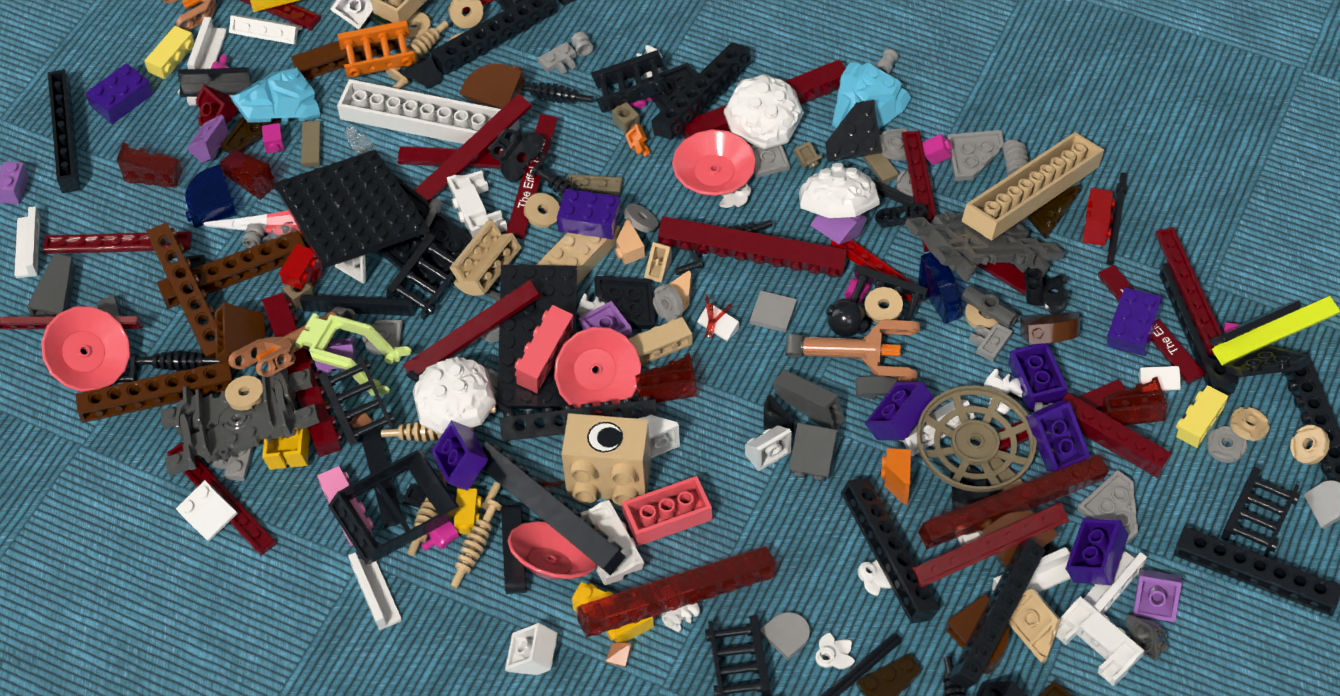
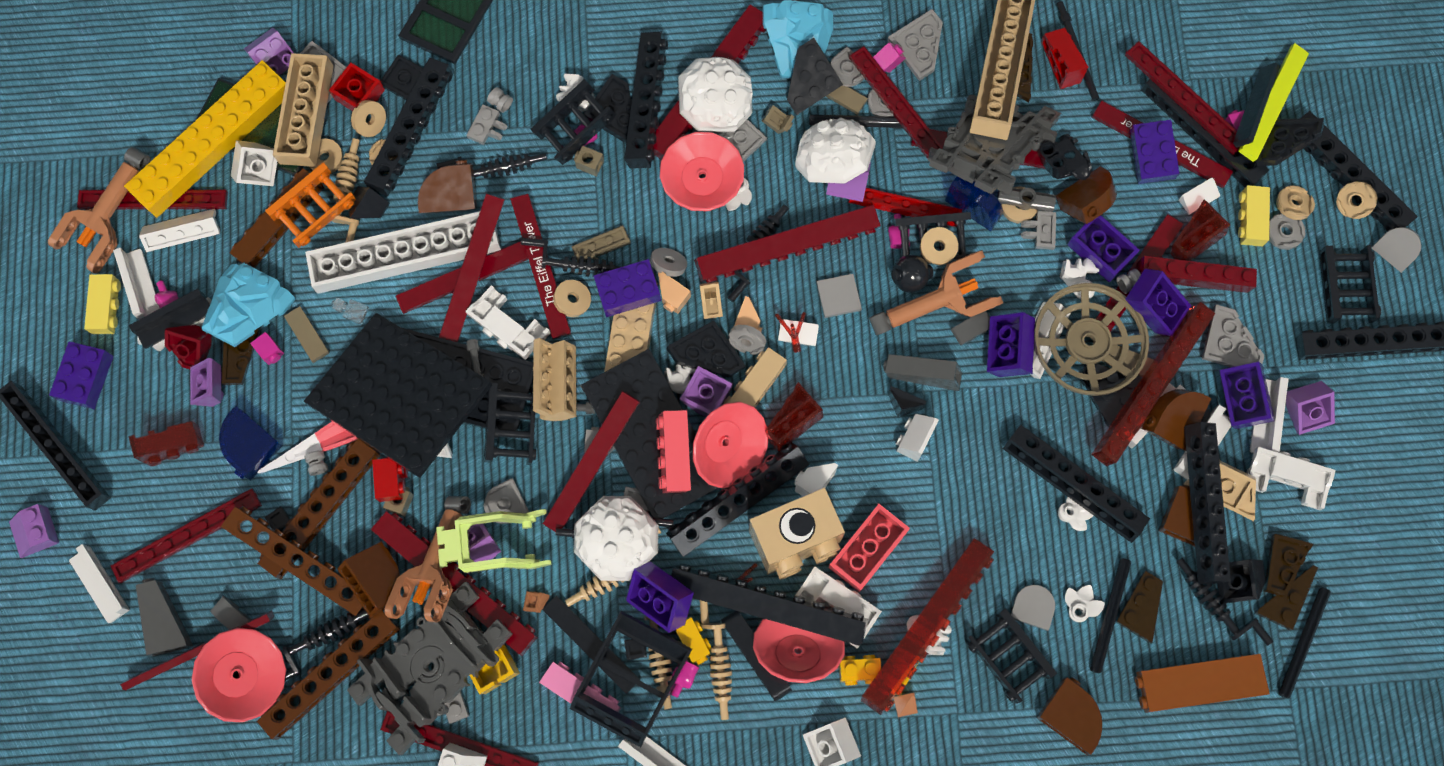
camera: 30 degrees left, 20 degrees up
(240, 385) = (410, 639): tan tile -> none
(248, 173) = (267, 399): clear red wedge -> none
(280, 230) = (338, 447): clear arm -> none
(346, 416) = (528, 610): black fence -> none
(360, 305) = (461, 485): black tile -> none
(510, 166) = (524, 239): black piece -> none
(636, 140) = (612, 179): orange plate -> none
(813, 452) = (958, 421): dark grey slope -> none
(893, 212) = (907, 131): black beam -> none
(896, 472) = (1044, 407): orange slope -> none
(990, 544) = (1165, 440): dark red tile -> none
(1014, 155) = (961, 34): light grey piece -> none
(1148, 636) = (1326, 452): dark grey hat -> none

